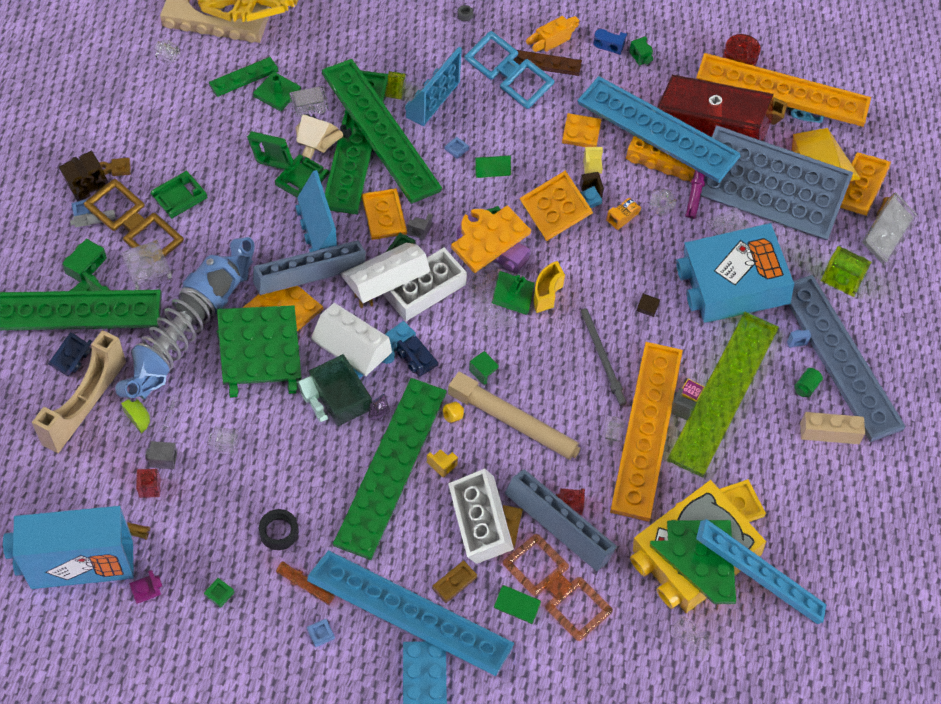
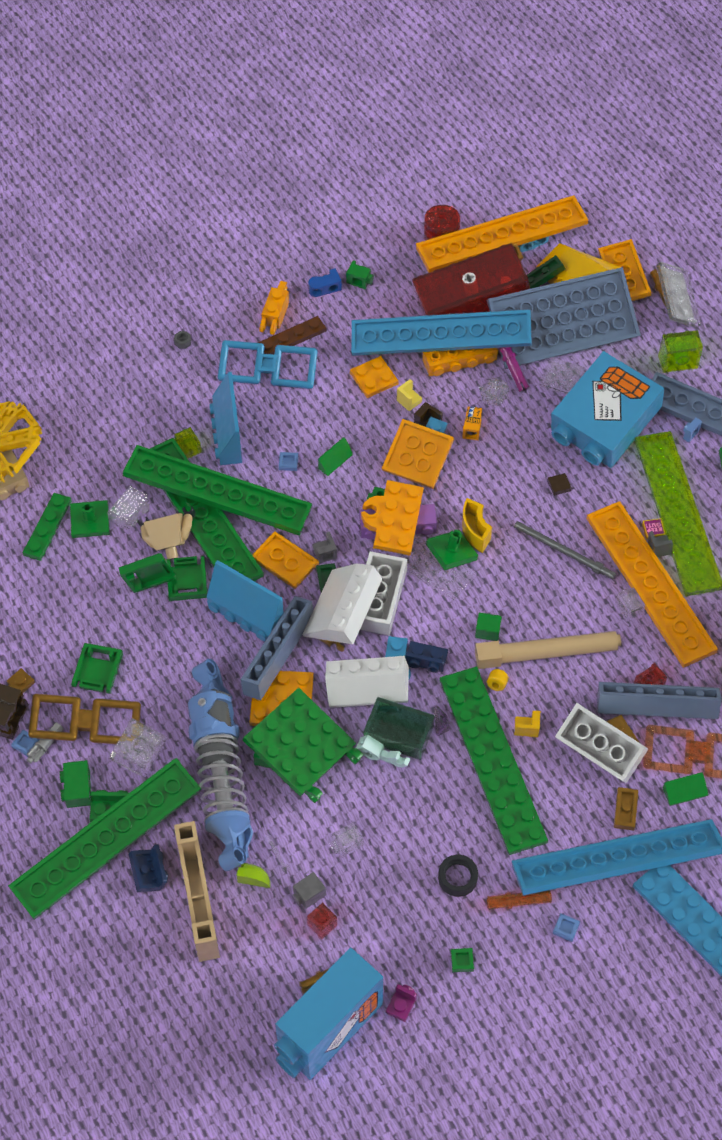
camera: 35 degrees left, 0 degrees up
(789, 140) = (545, 272): none -> dark green plate

